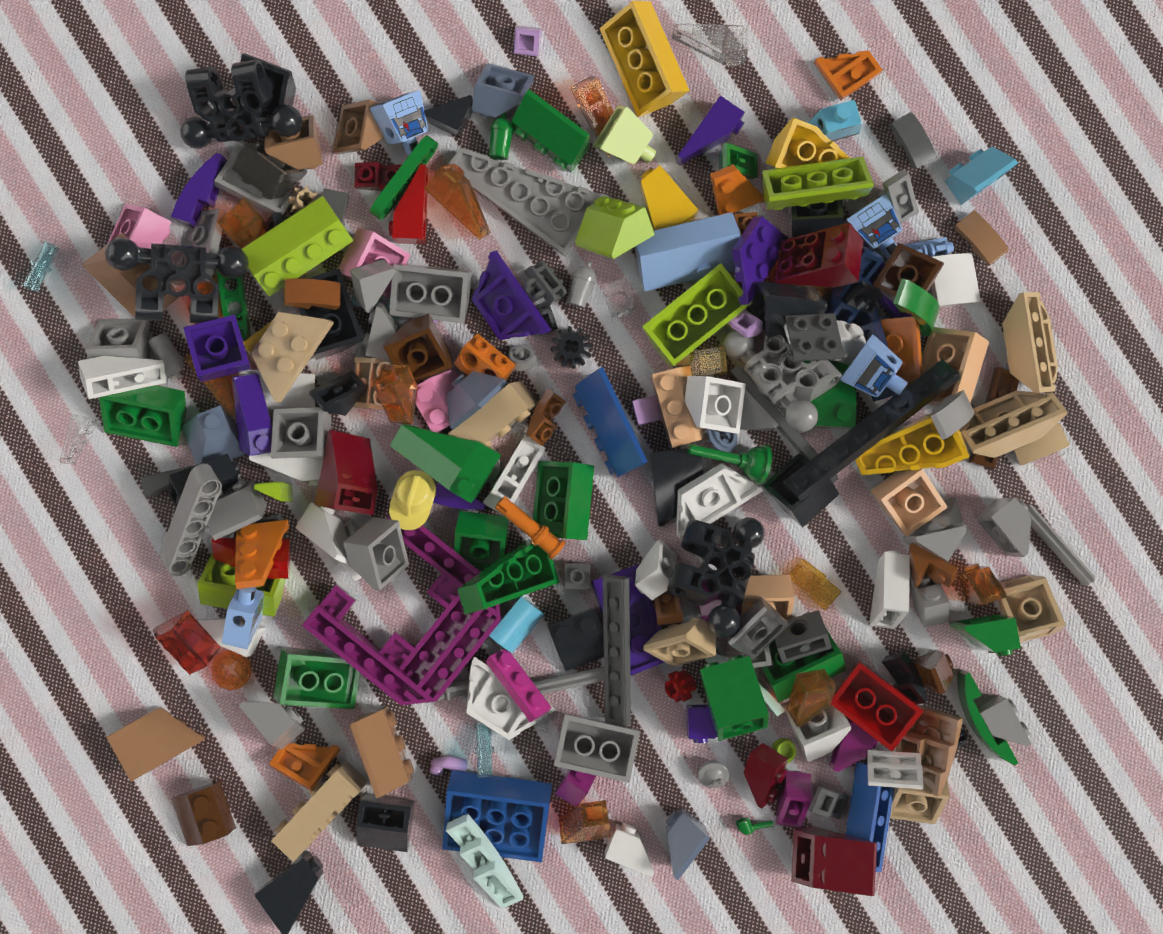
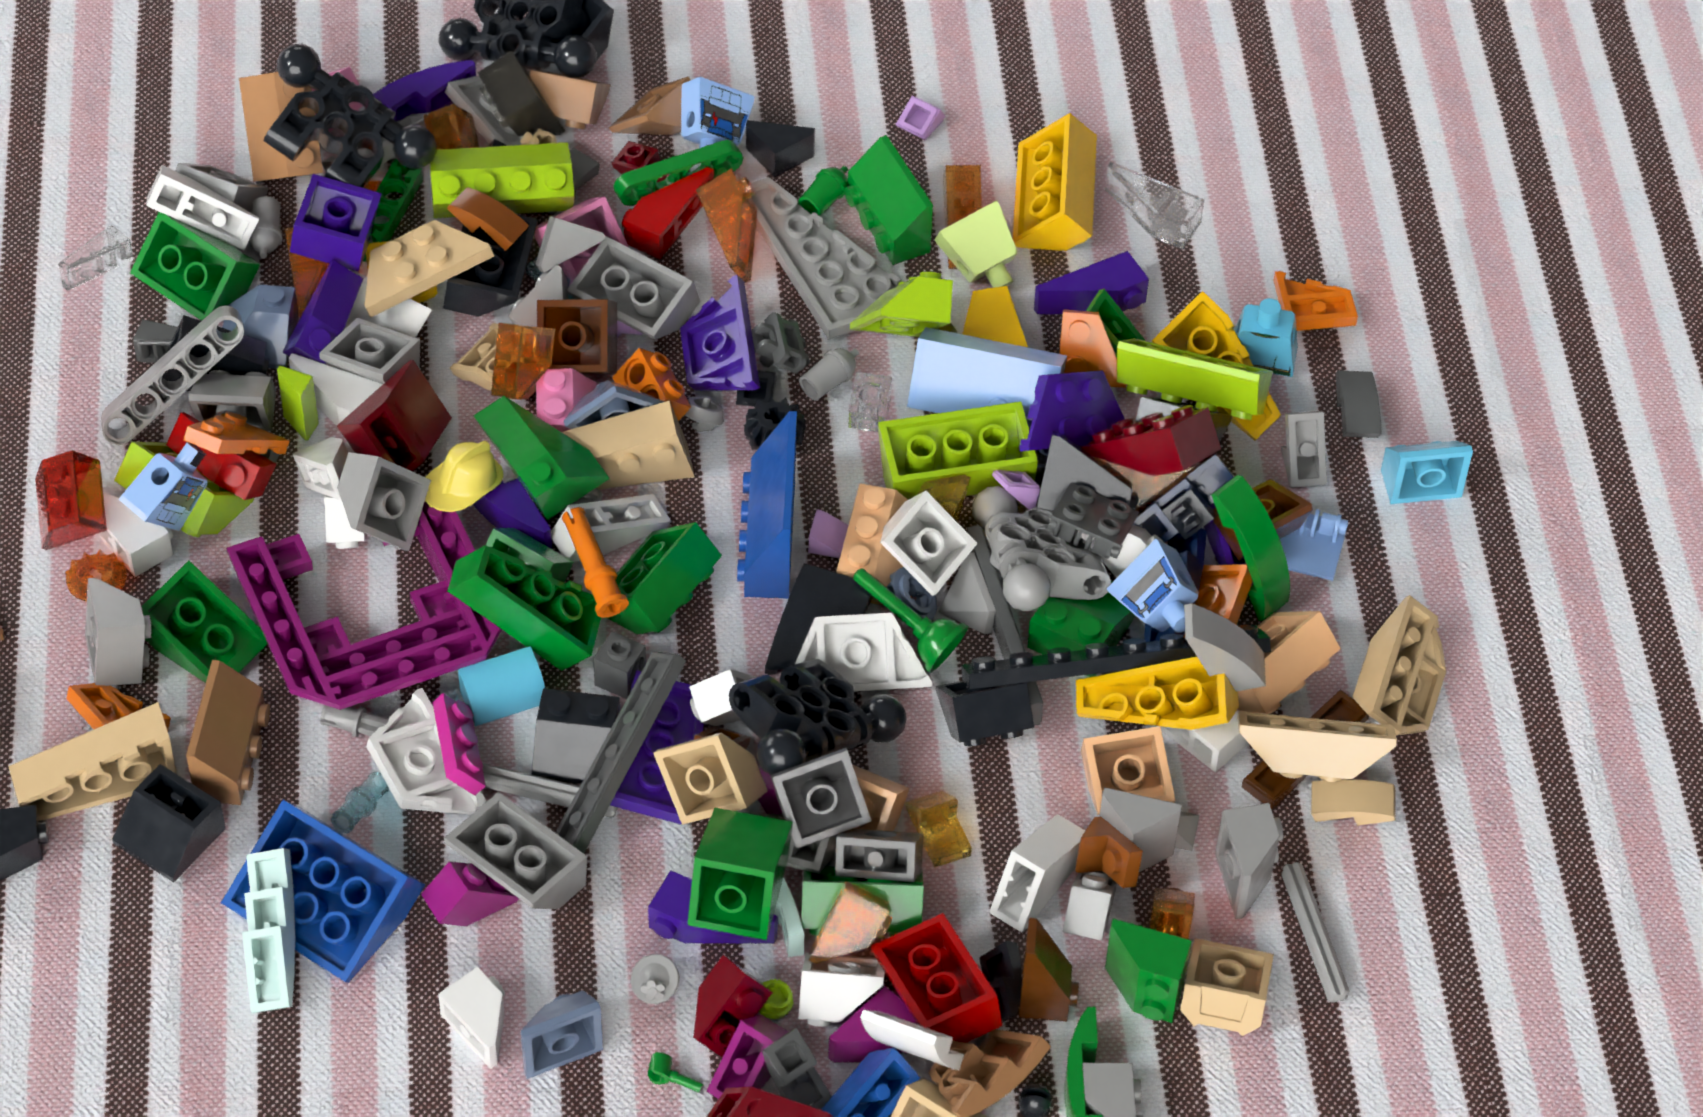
camera: 25 degrees right, 35 degrees down
(40, 267) = (181, 86): clear light blue pin -> none
(339, 394) = (448, 343): black slope -> none
(447, 762) = (299, 797): lavender arm -> none
(499, 90) = (842, 141): sand blue slope -> none
(540, 425) = (691, 479): dark orange slope -> none
(585, 823) = (445, 949): clear orange slope -> none
(680, 686) = (675, 849): red gear -> none
(877, 225) = (1256, 456): torso -> none
(956, 281) = (1329, 565): white slope -> none
(982, 237) = (1396, 542): medium nougat slope -> none

